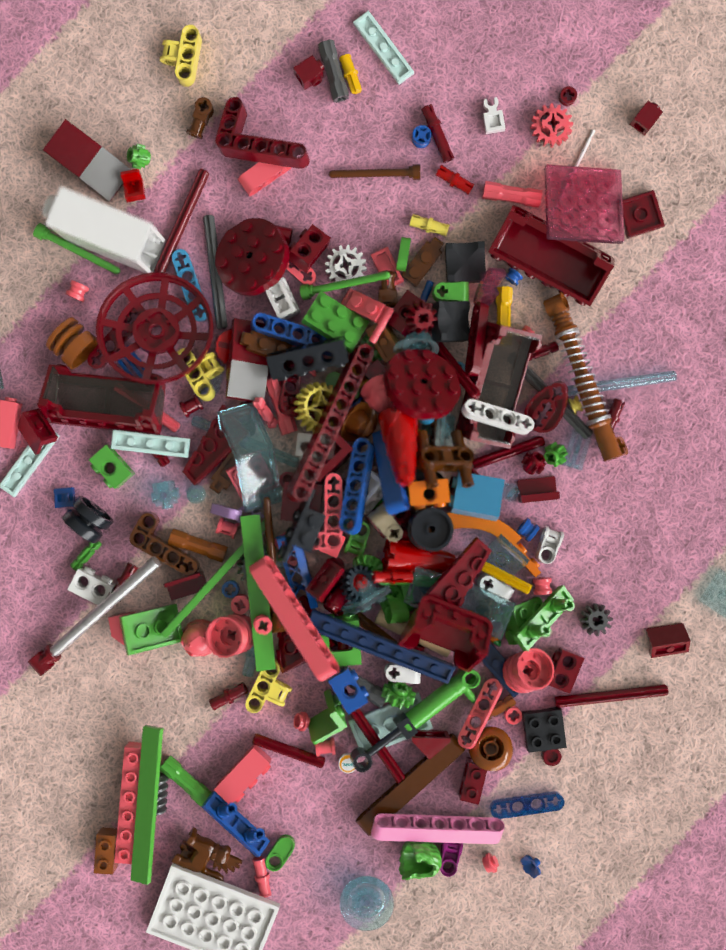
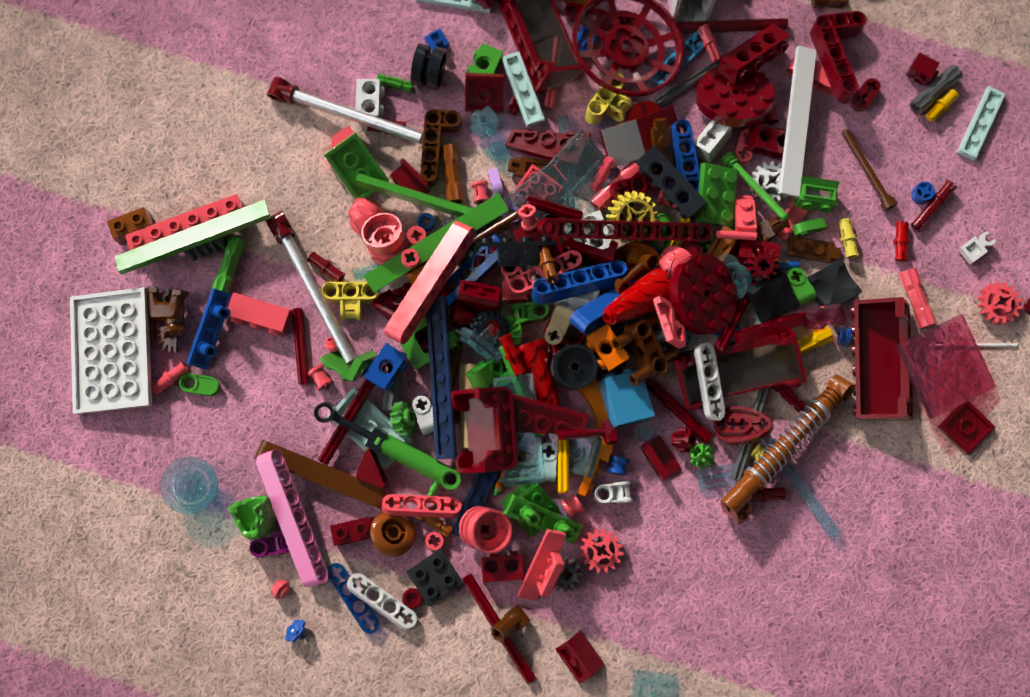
camera: 65 degrees right, 10 degrees down
(136, 480) = (484, 90): none -> dark red tile
(171, 720) = (280, 228): none -> flat silver piece
(190, 252) = (709, 43): none -> coral axle
(191, 405) = (574, 109): dark red bush -> none
(221, 218) = (753, 53): none -> dark red brick
(276, 501) = (529, 221): none -> coral bush
(278, 474) = (554, 208): none -> dark red axle
(303, 213) = (797, 122): none -> white tile
(310, 135) = (868, 96): none -> dark red beam
(329, 508) = (547, 265): none -> dark orange pin
(345, 763) = (310, 405): white tile -> none
(369, 416) = (646, 261): none -> reddish brown bar
(377, 232) = (817, 194): none -> bright green window
(436, 428) = (672, 328): none -> coral wing
(498, 527) = (607, 432): none -> dark red piece
(543, 785) = (379, 605): none -> white beam
(584, 585) = (605, 542): none -> coral gear
(585, 637) = (544, 568): none -> coral bracket
(613, 683) = (512, 622): none -> reddish brown piece

